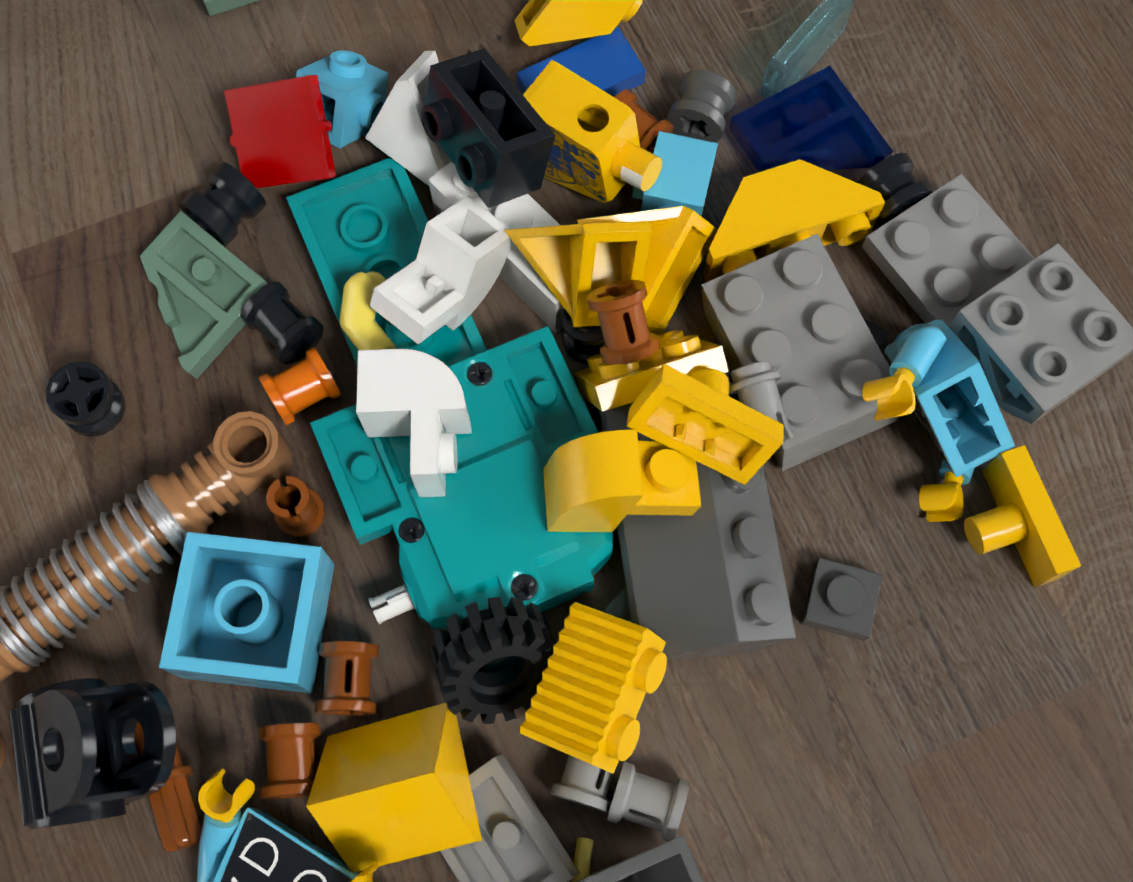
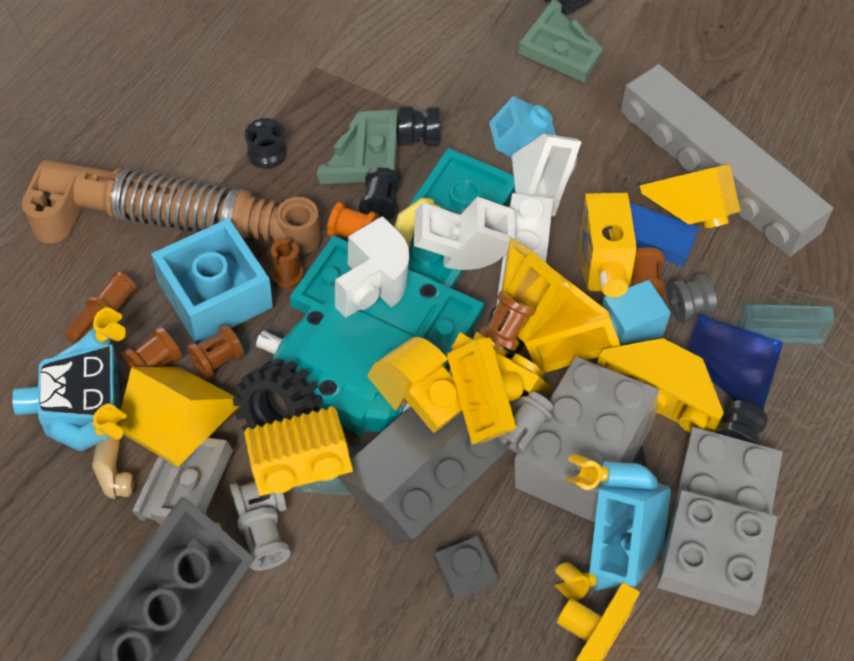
camera: 50 degrees right, 15 degrees down
(80, 749) = (82, 267): black piece -> none
(281, 132) = (478, 118): red piece -> none
(486, 127) = (556, 188): black brick -> none

